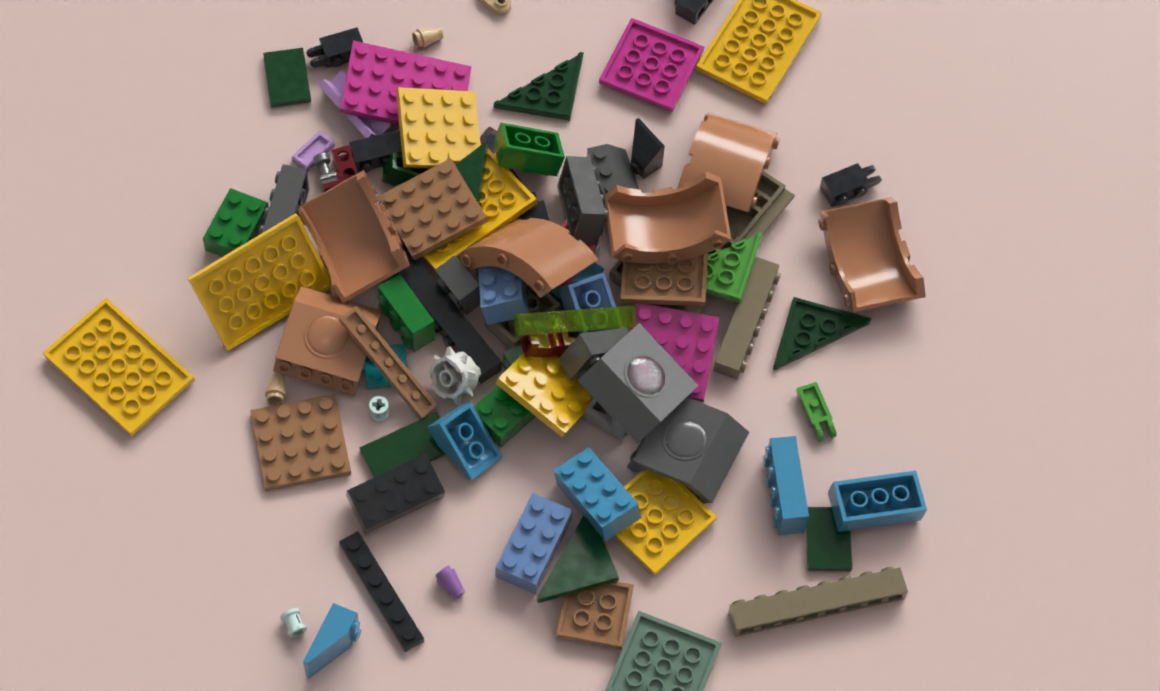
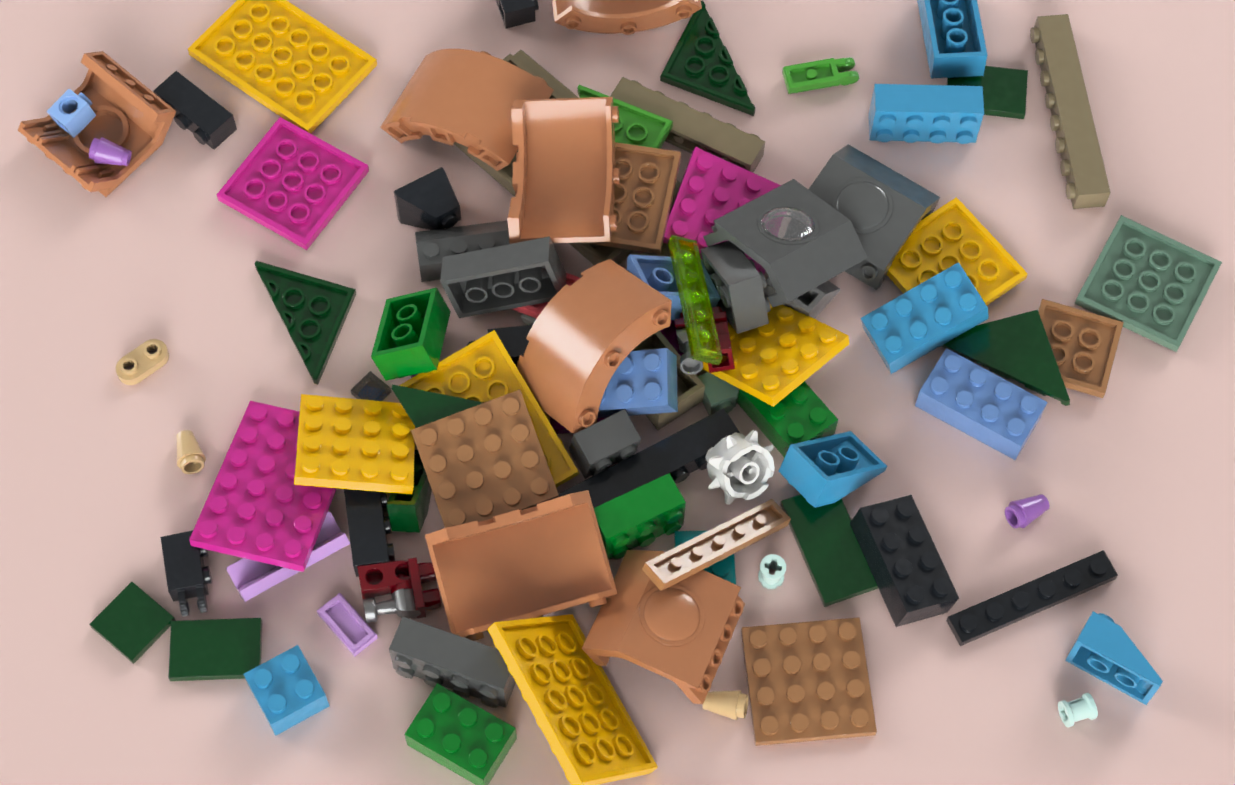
camera: 80 degrees left, 0 degrees up
(259, 119) = (286, 690): none -> dark azure brick
(301, 27) = (132, 622): none -> dark green tile

